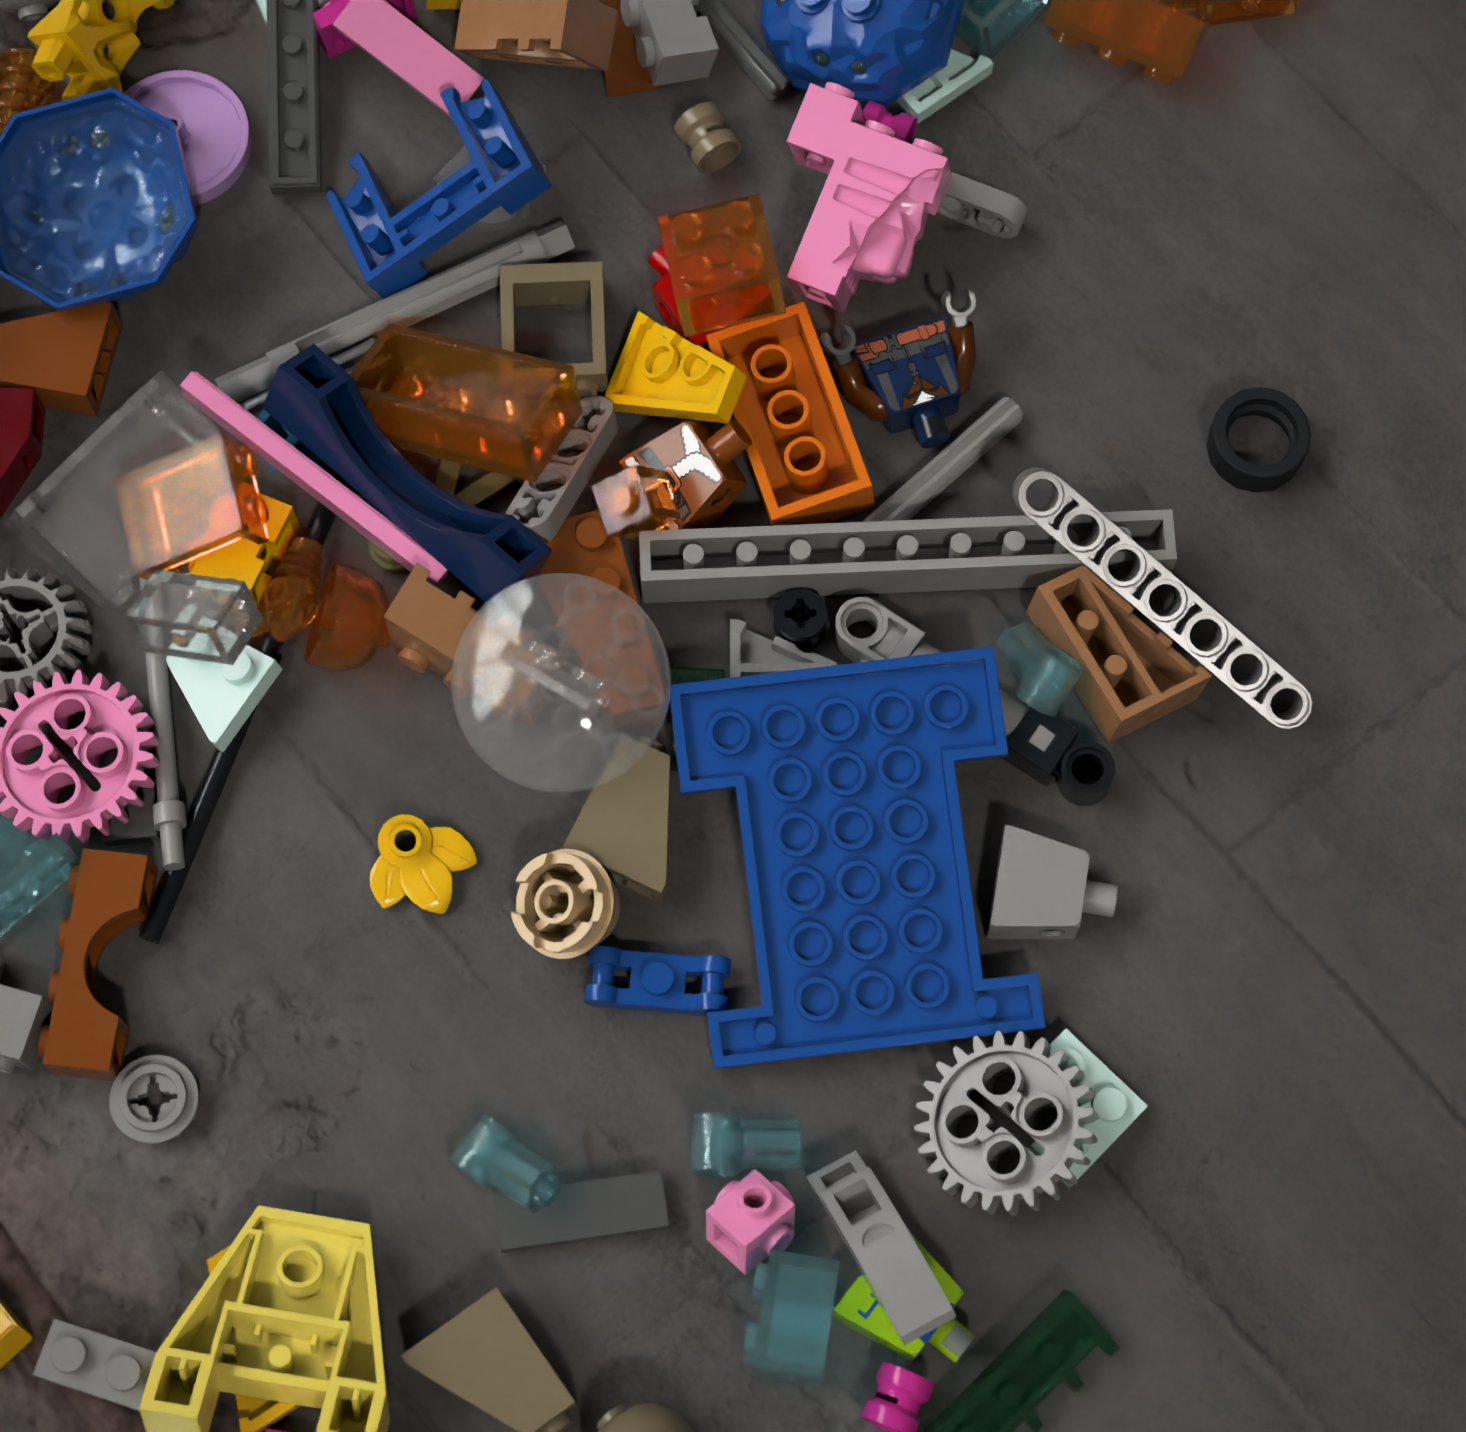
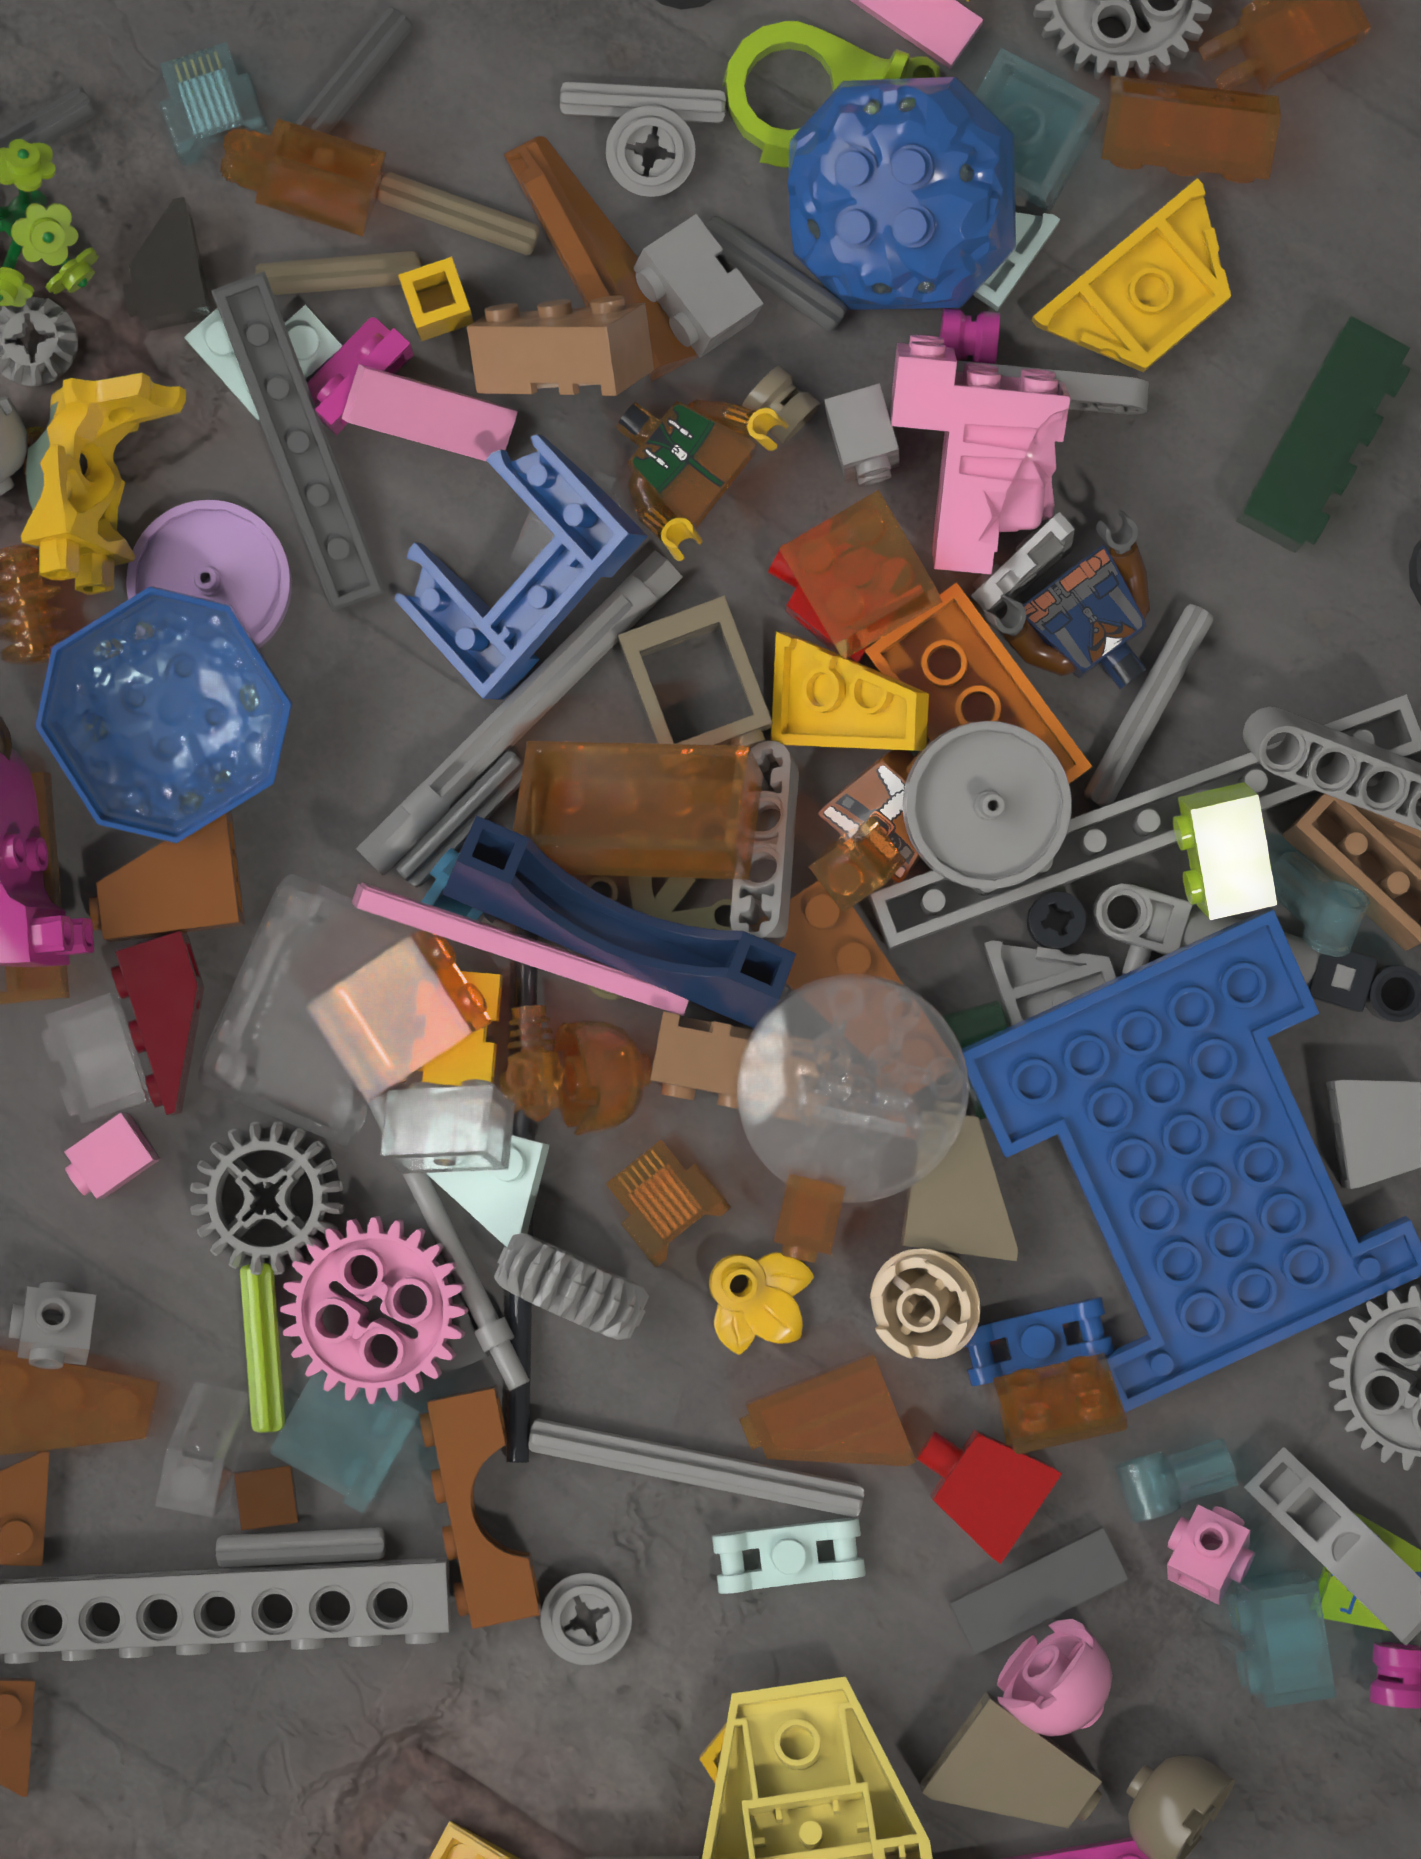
camera: 20 degrees left, 15 degrees up
(250, 785) = (571, 1286): none -> light grey gear
(308, 996) = (696, 1467): none -> light grey axle
(361, 1102) = (788, 1555): none -> light aqua plate
(366, 750) = (663, 1199): none -> clear orange piece
(443, 986) = (830, 1418): none -> clear orange slope
(485, 792) = (807, 1217): none -> clear orange brick
(498, 1159) = (941, 1572): clear light blue piece -> none
(566, 1096) = (987, 1488): none -> red torso
(569, 1298) = (1058, 1681): none -> bright pink cylinder
(615, 156) = (689, 461): none -> torso
(655, 1034) = (1059, 1404): none -> clear orange bracket
(766, 481) = (987, 805): none -> light grey piece
(767, 165) = (863, 435): none -> light grey brick
(877, 311) = (1032, 560): none -> light grey wing
(966, 583) = (1225, 851): none -> brick
(1049, 139) = (1146, 288): none -> yellow wing
(1166, 295) = (1324, 434): none -> clear green brick

